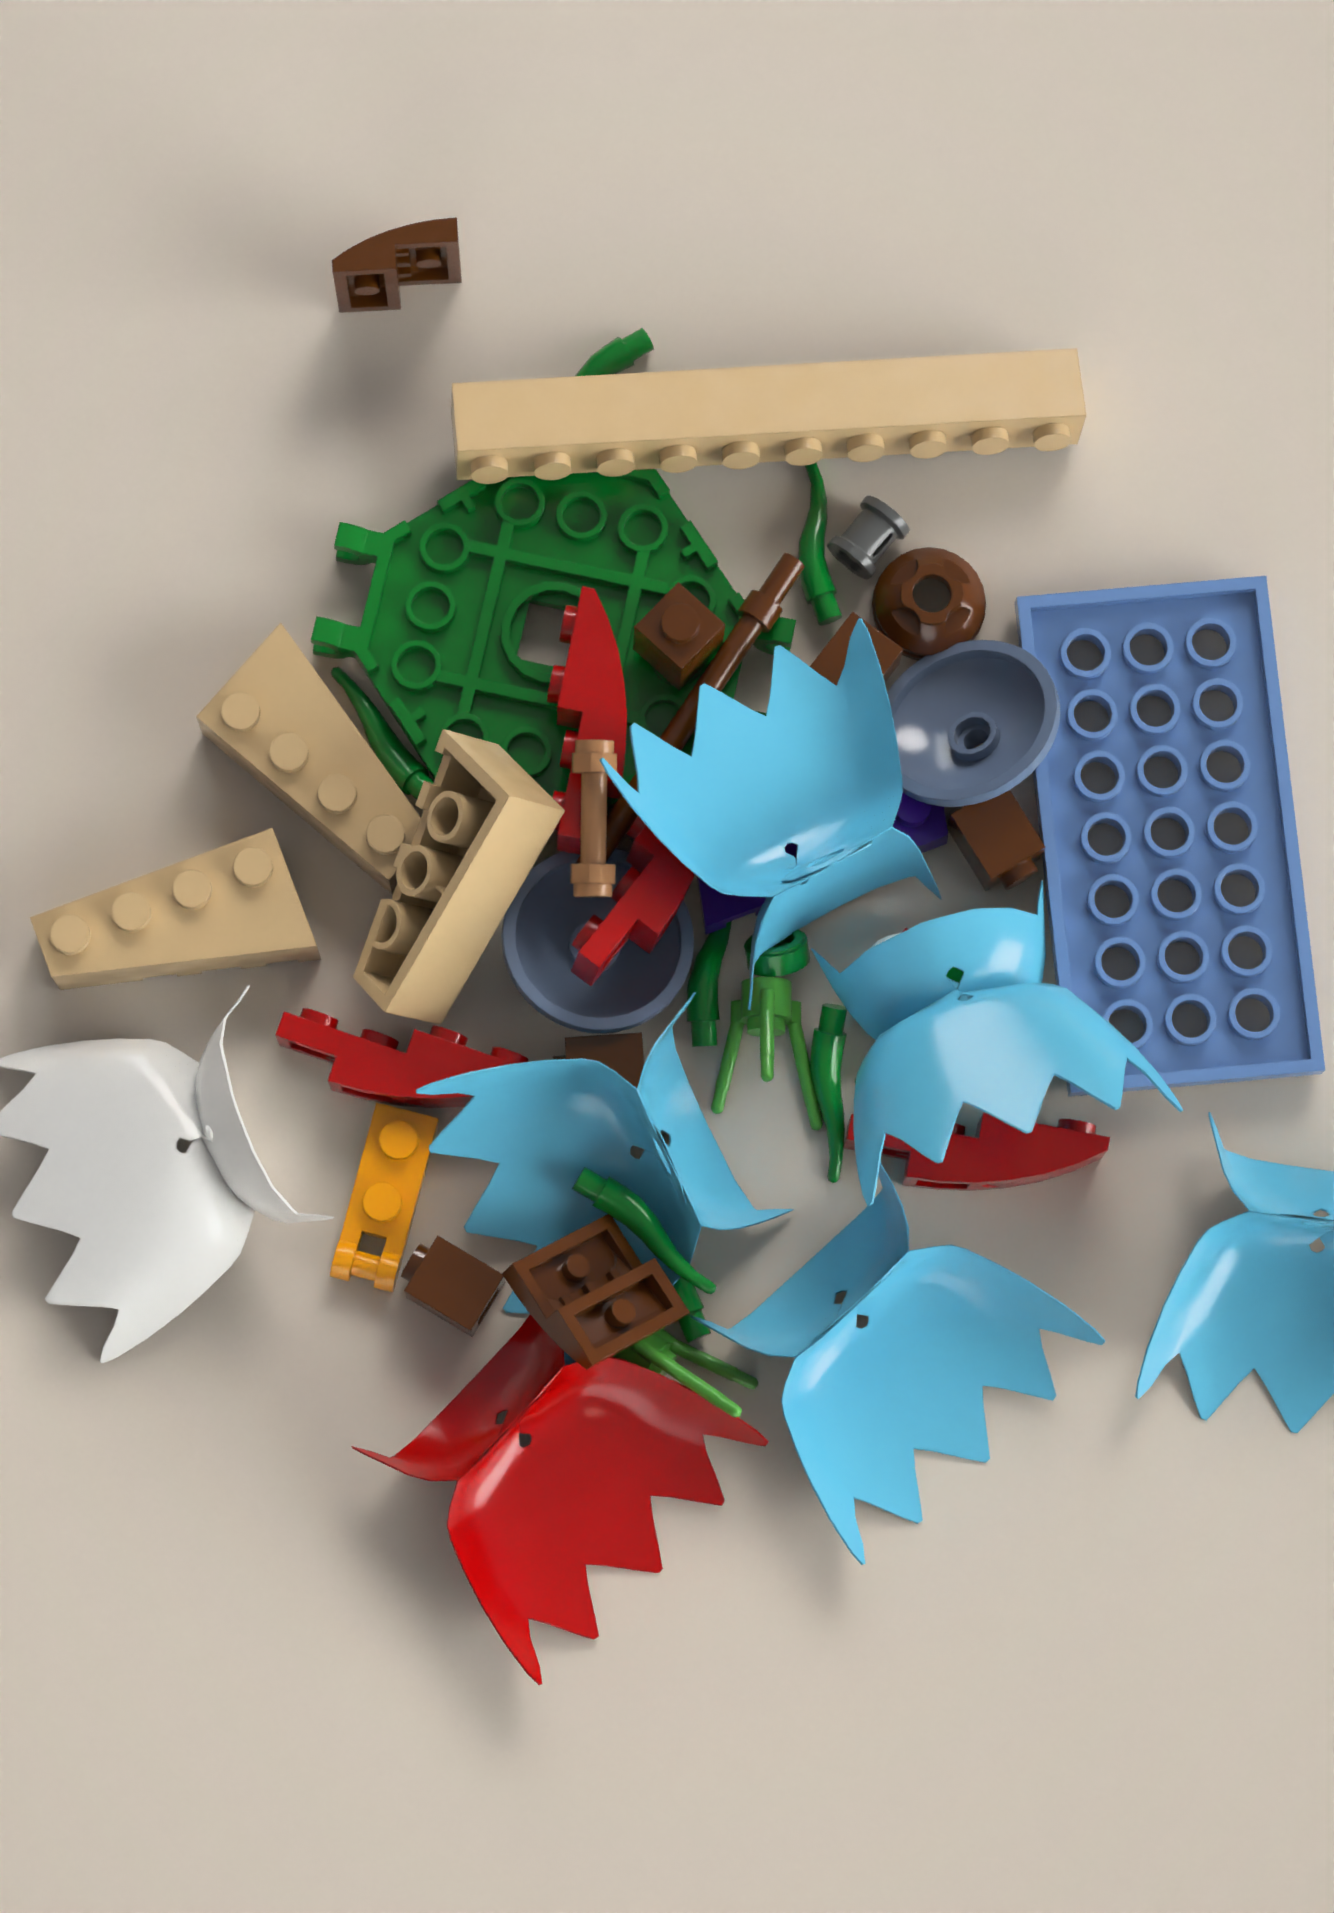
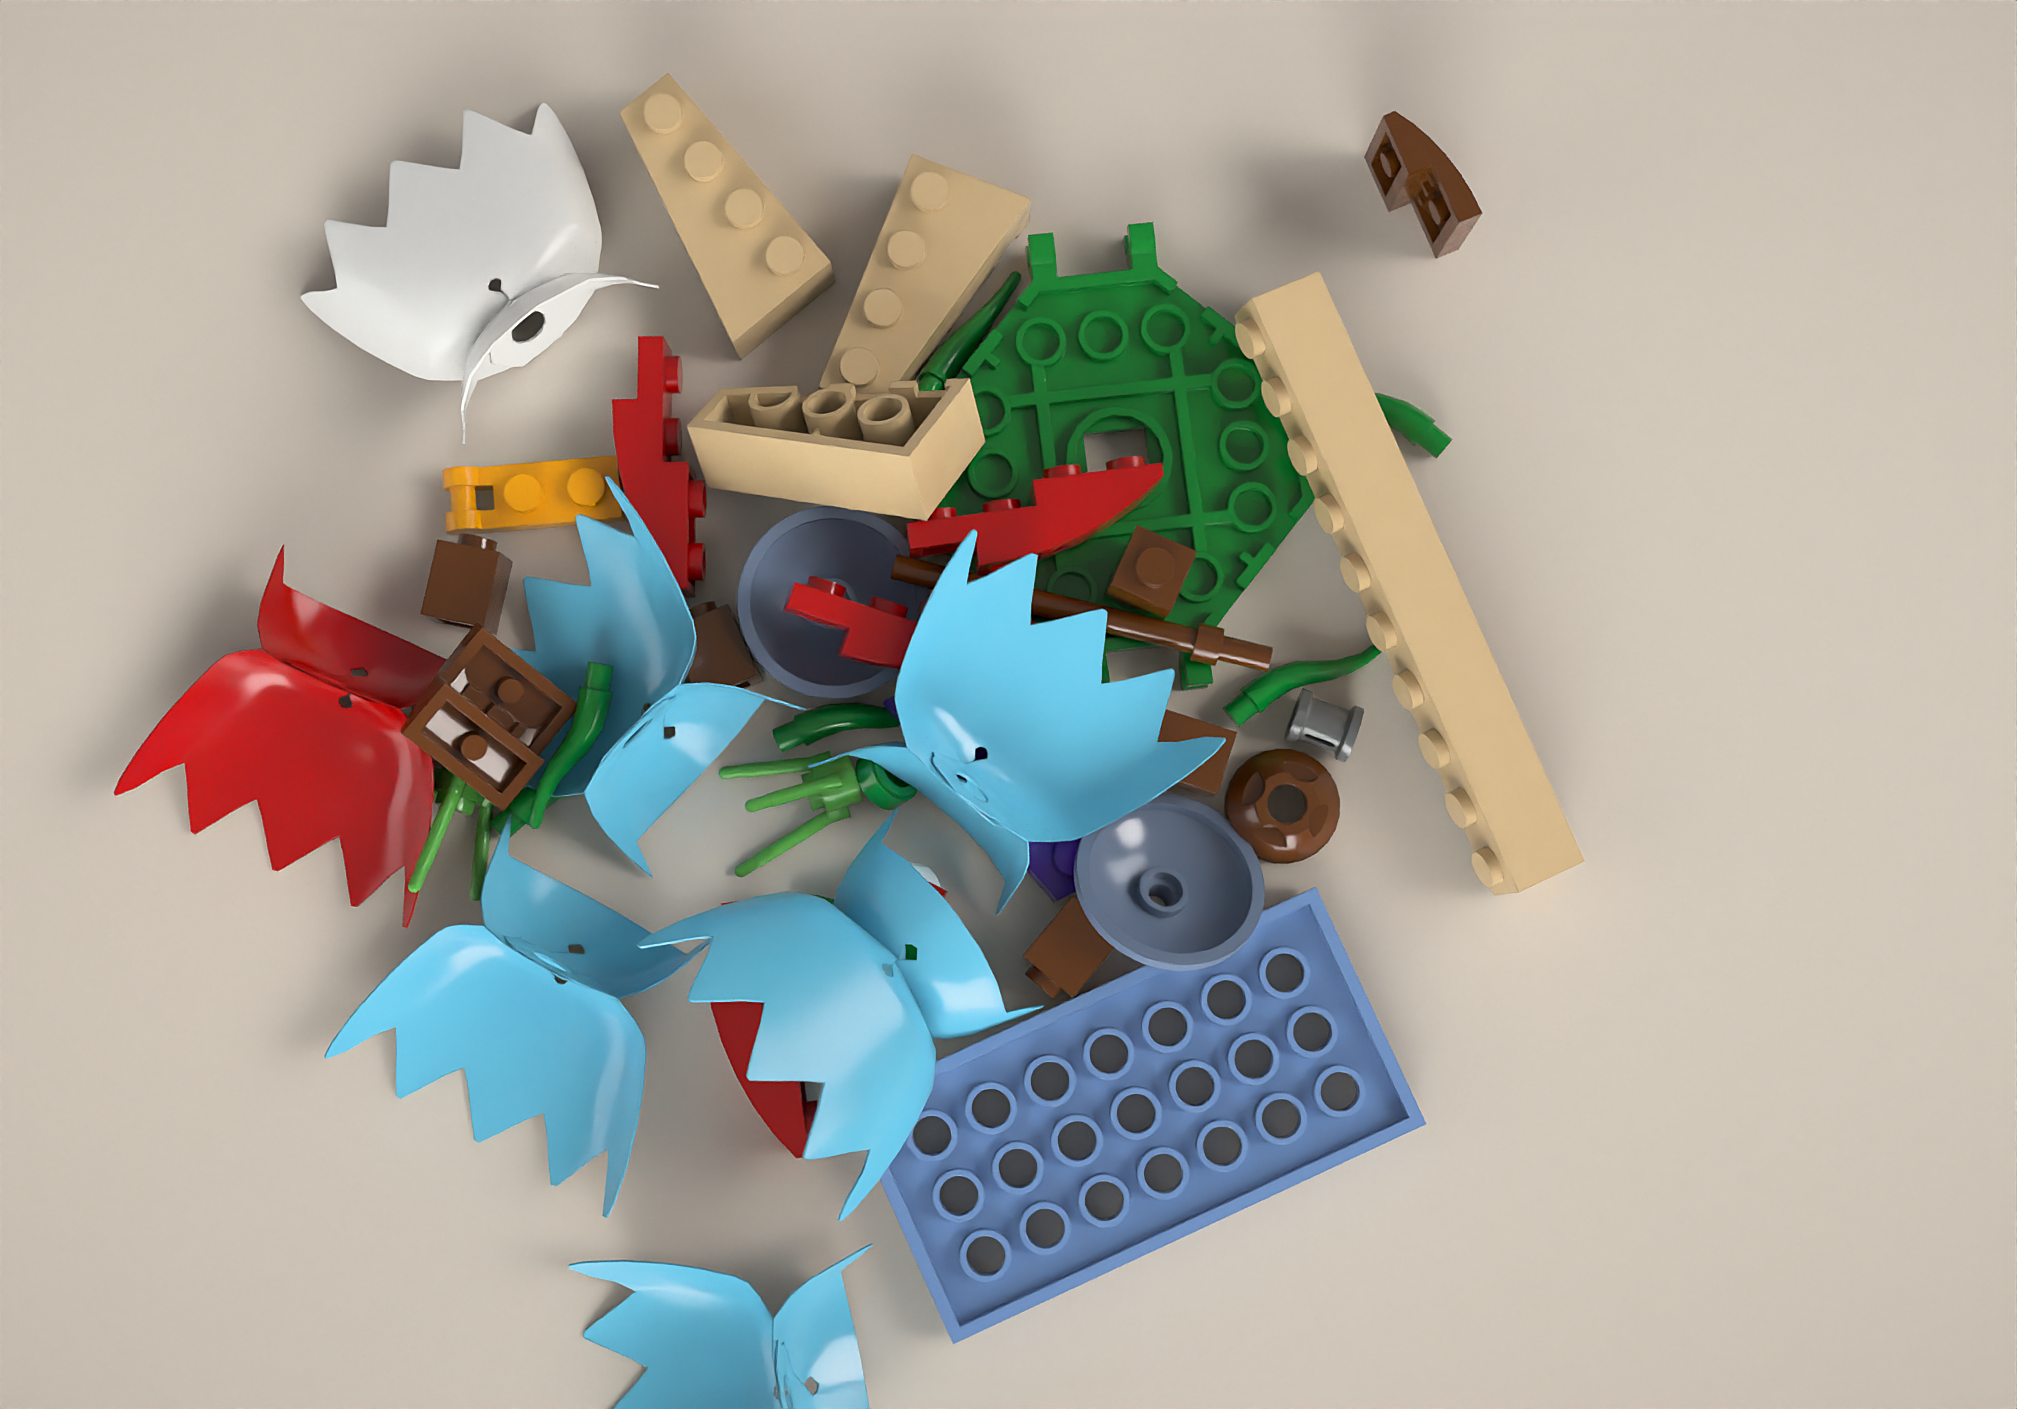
camera: 75 degrees right, 5 degrees up
(593, 875) = (877, 570): medium nougat bar -> none
(825, 1068) = (793, 862): green animal -> none

